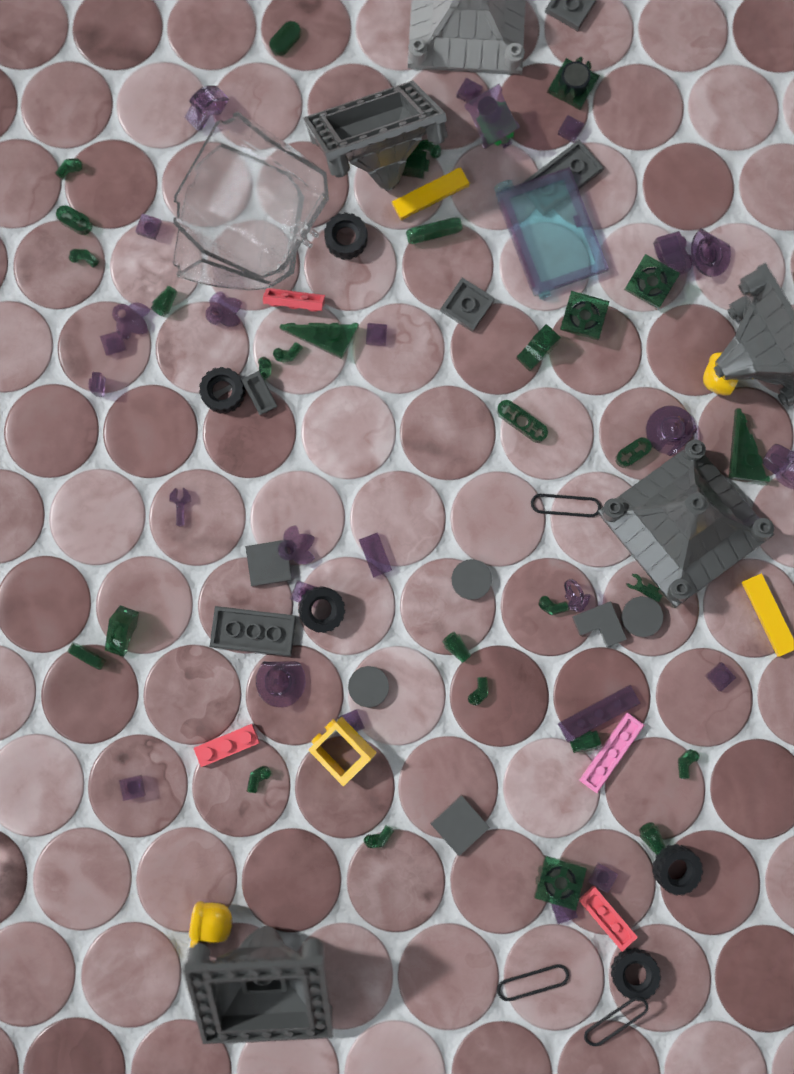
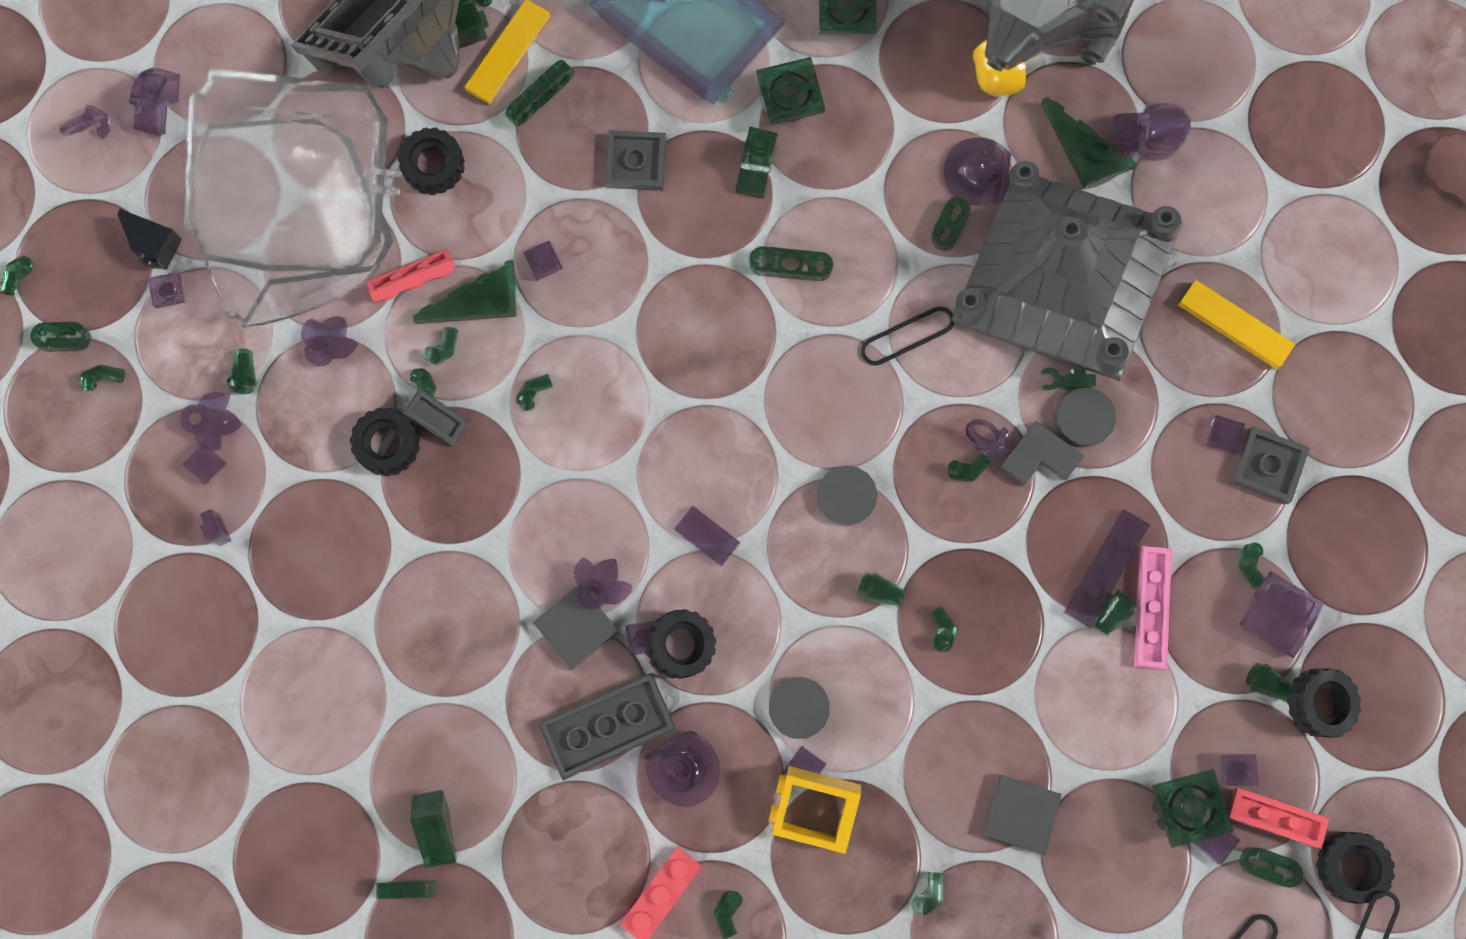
camera: 30 degrees left, 5 degrees down
(155, 191) = (149, 240): none -> black slope
(163, 96) = (89, 118): none -> clear purple piece
(180, 505) = (415, 620): clear purple bar -> none
(324, 407) = (529, 390): none -> clear green arm
(582, 946) = (1273, 860): none -> clear green beam
(686, 803) = (1282, 614): none -> clear purple slope
(736, 711) = (1270, 465): none -> dark grey tile

